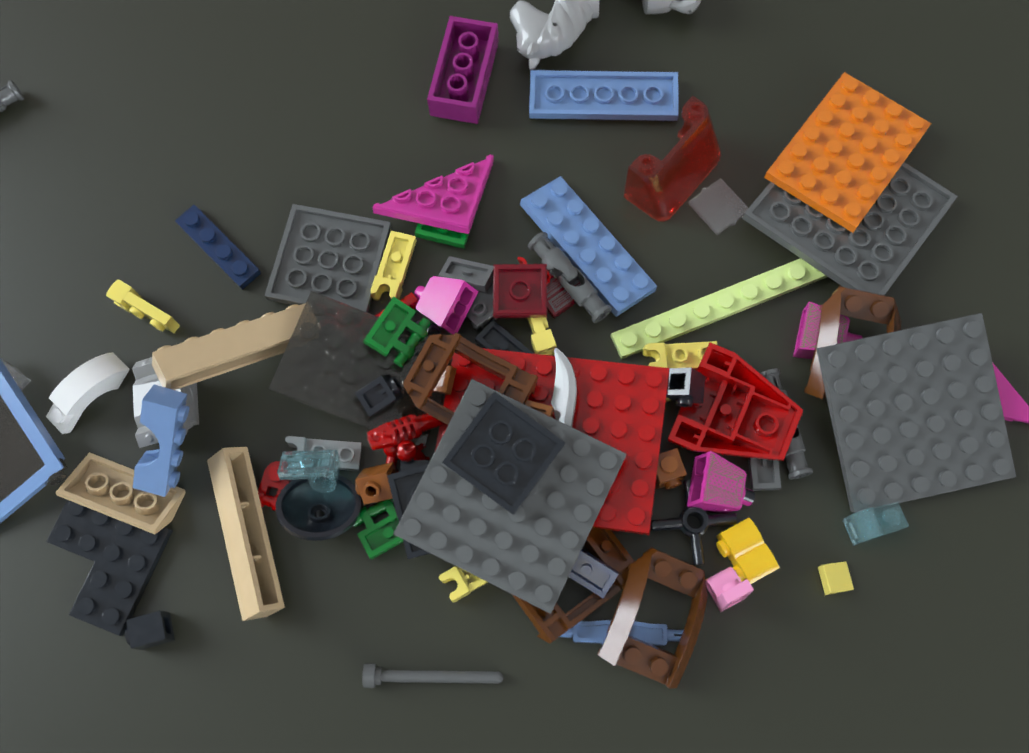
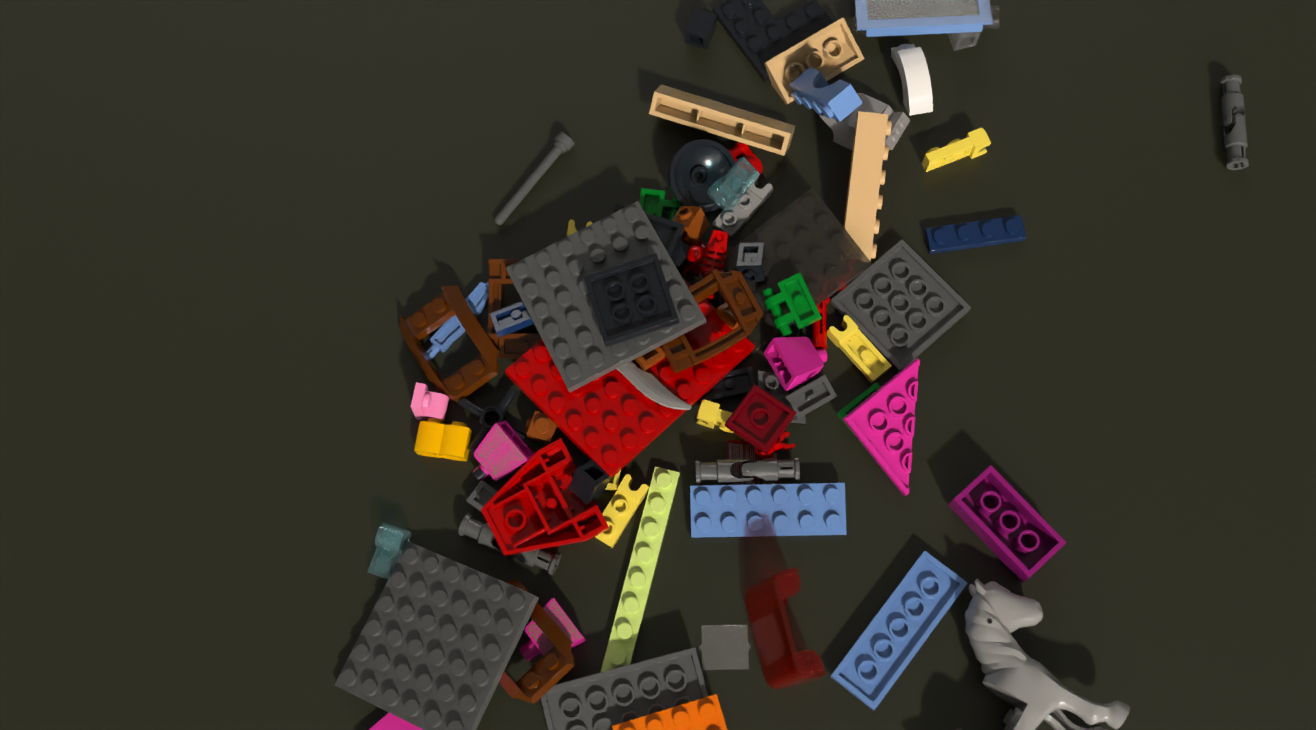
camera: 125 degrees right, 0 degrees up
(835, 578) = (377, 490): light yellow slope -> none

